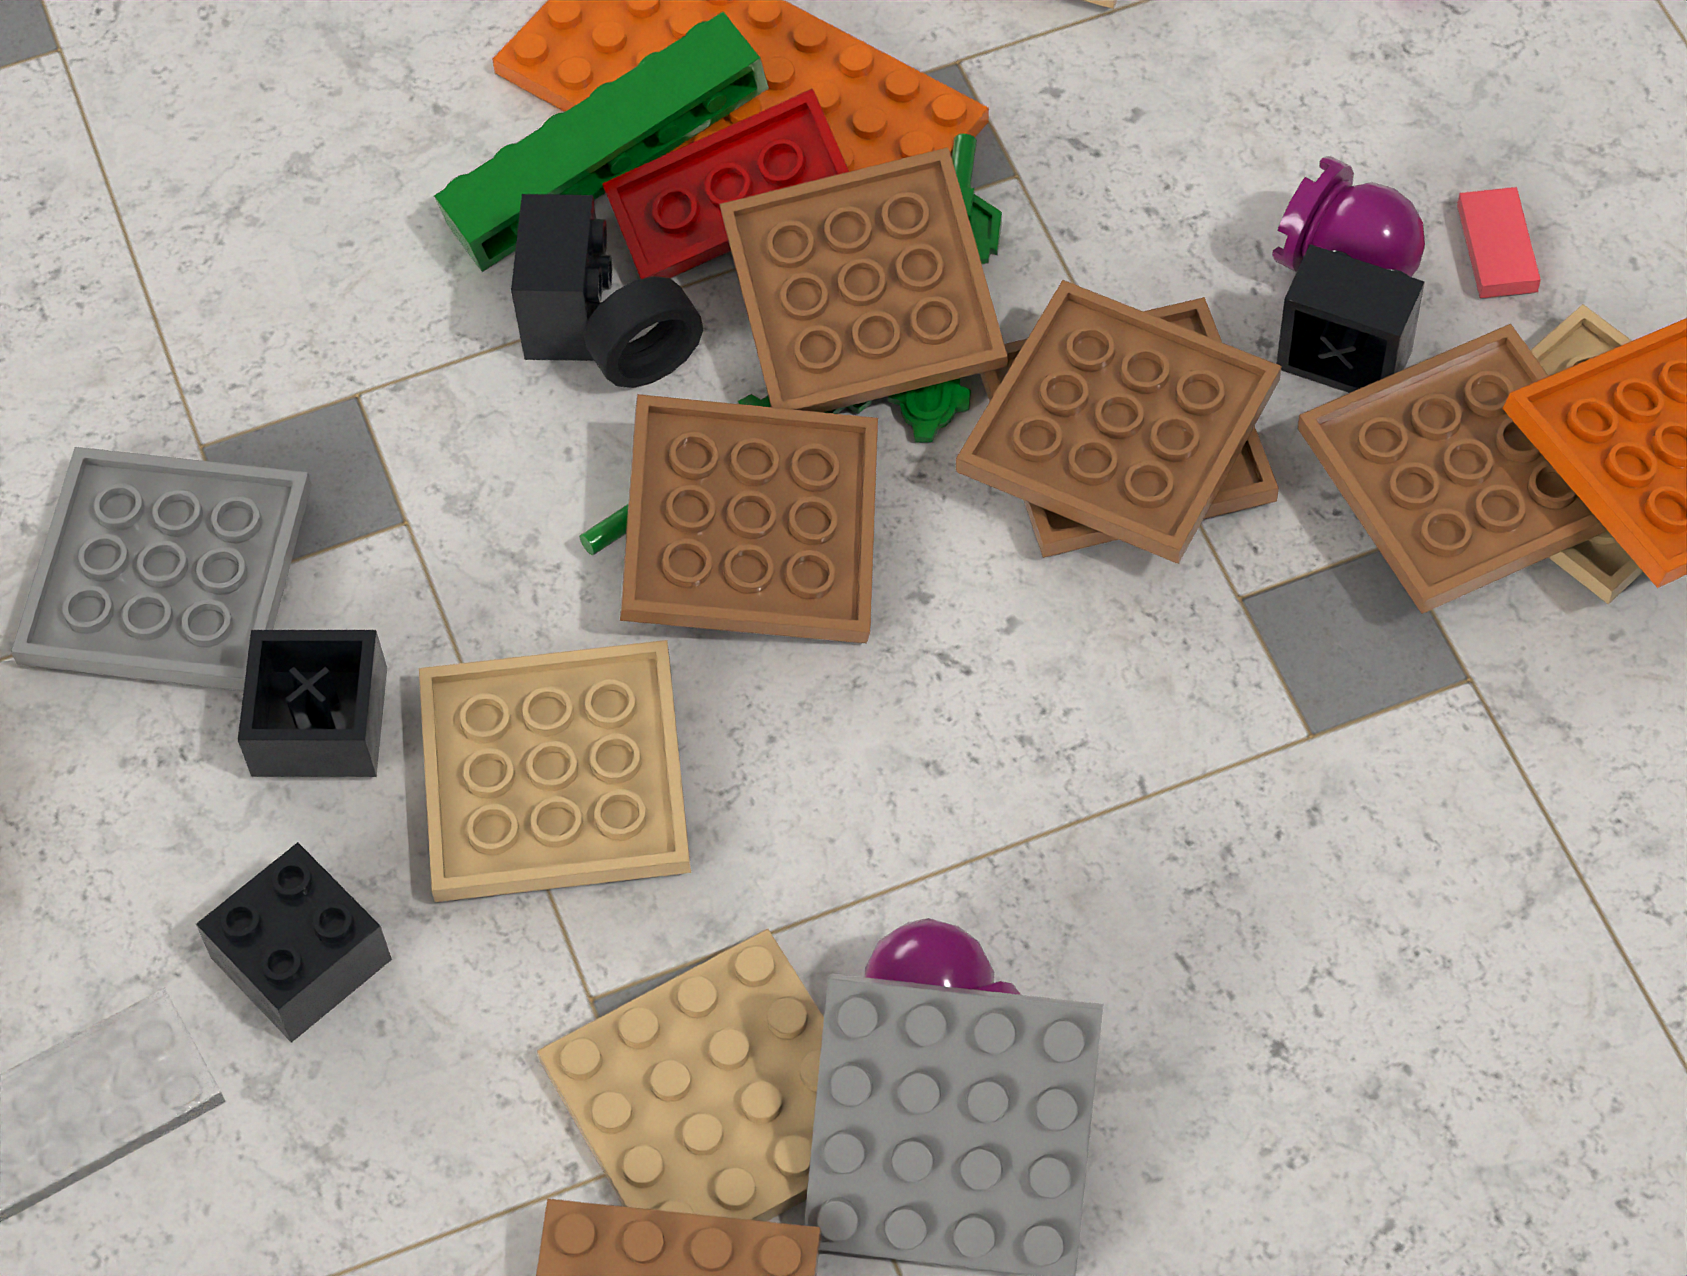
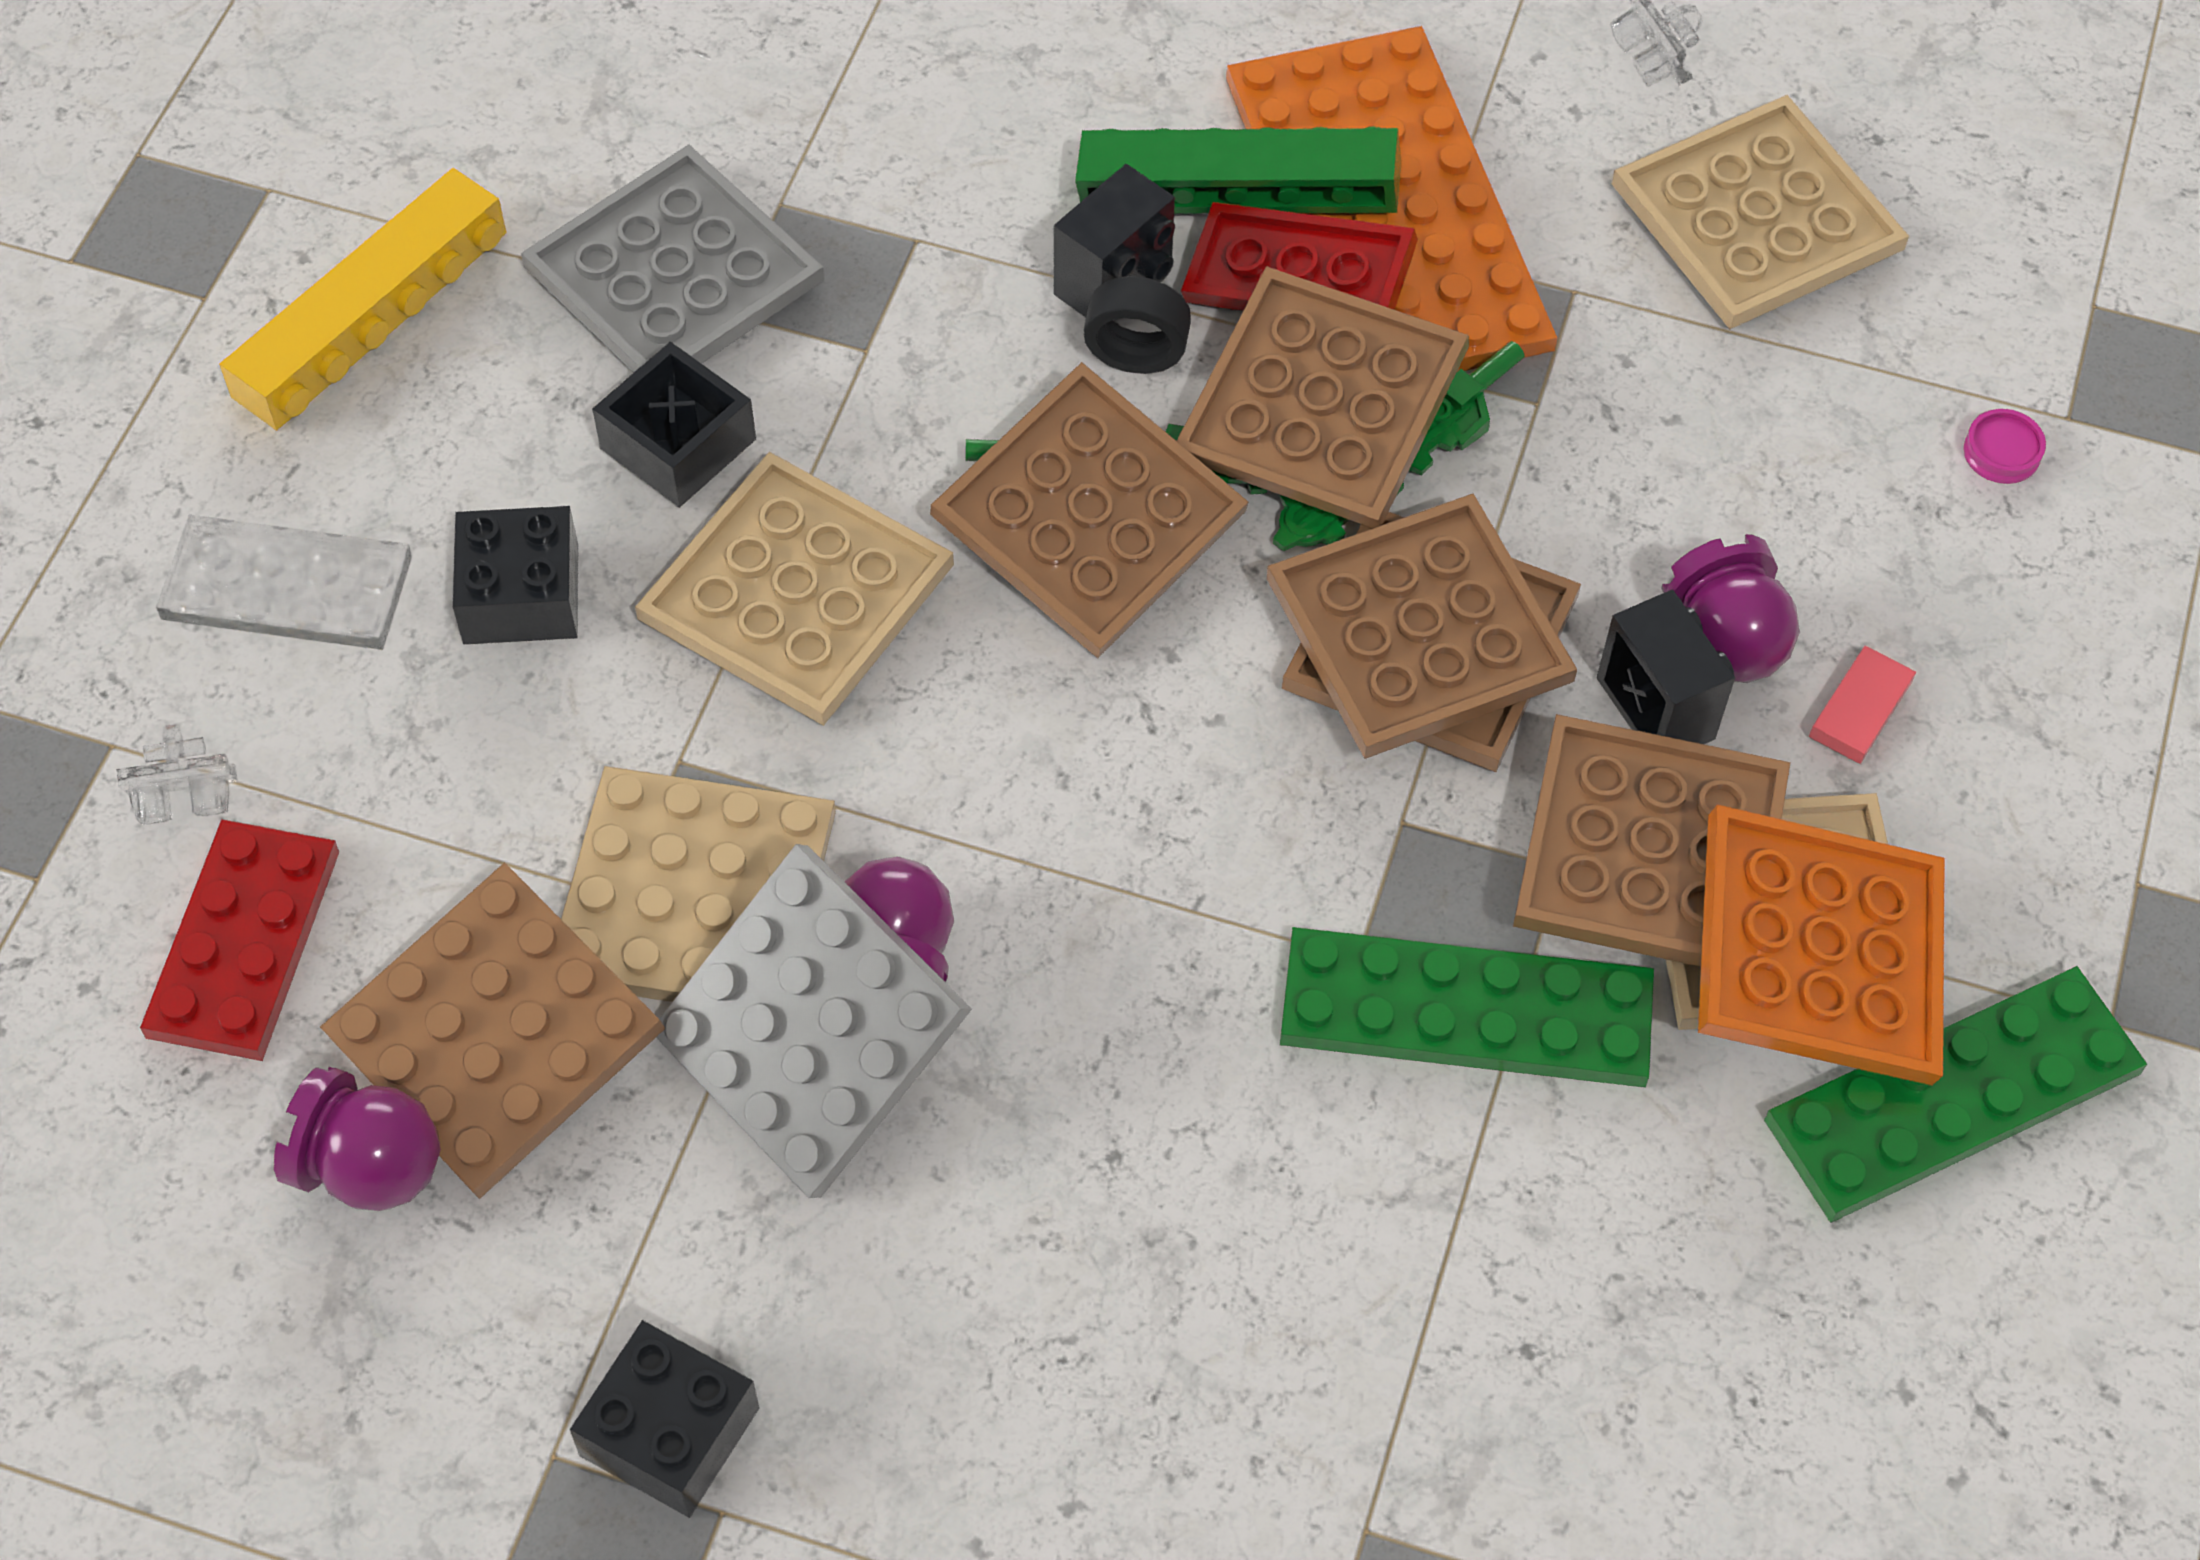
camera: 35 degrees right, 0 degrees up
(1433, 710) = (1468, 1007): none -> green plate

